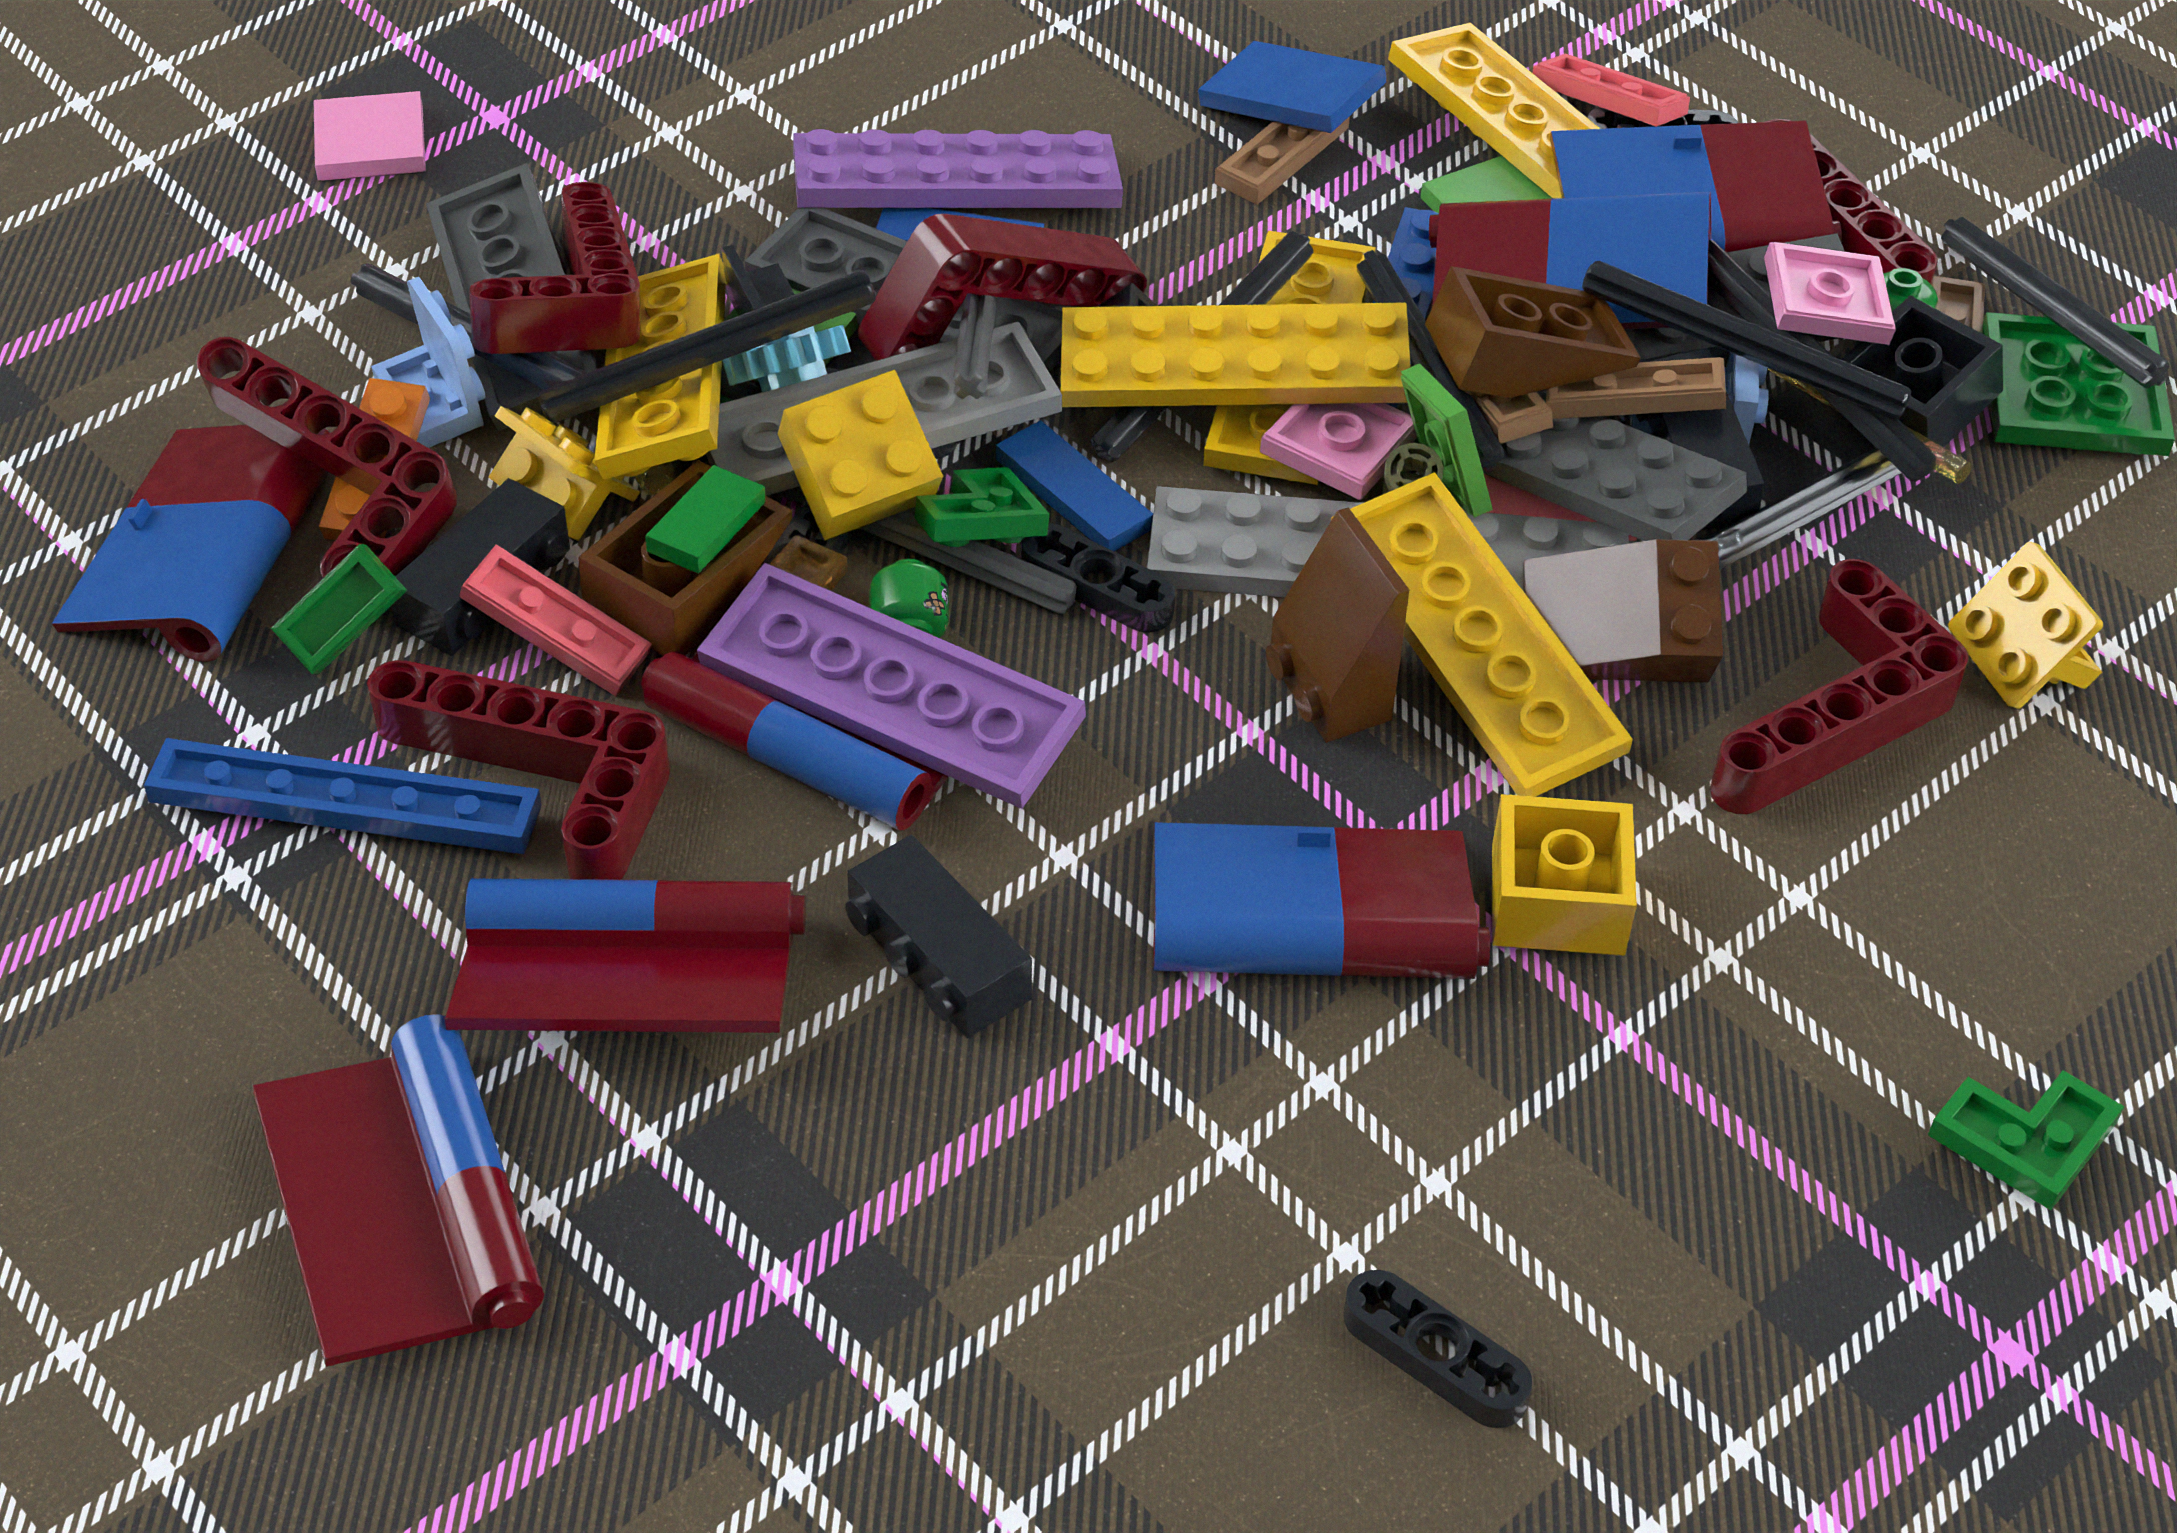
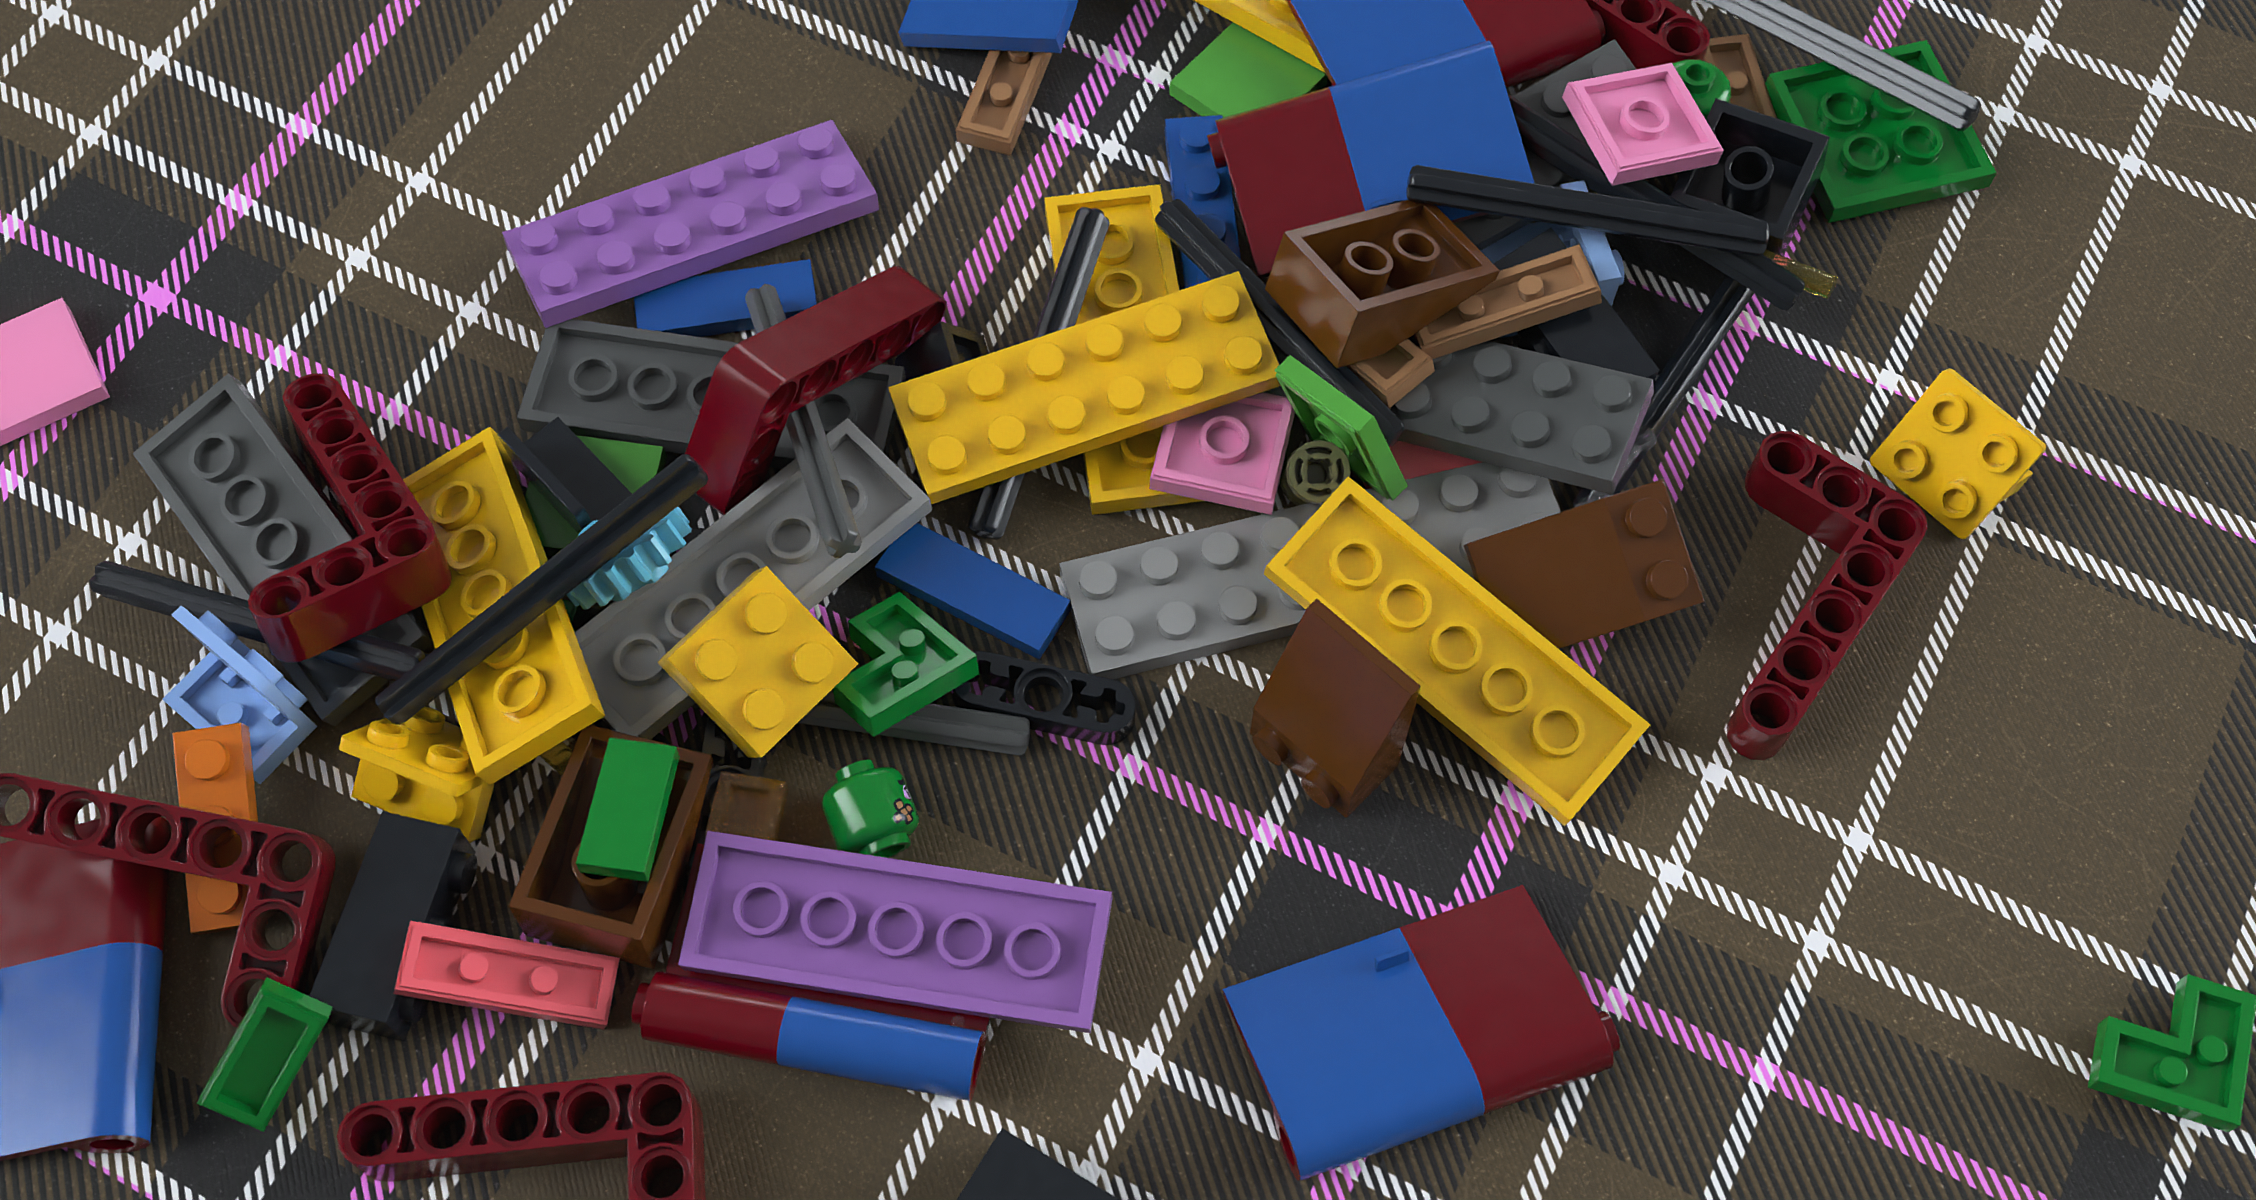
camera: 20 degrees left, 15 degrees up
(1563, 875) = (1654, 922): yellow brick -> none

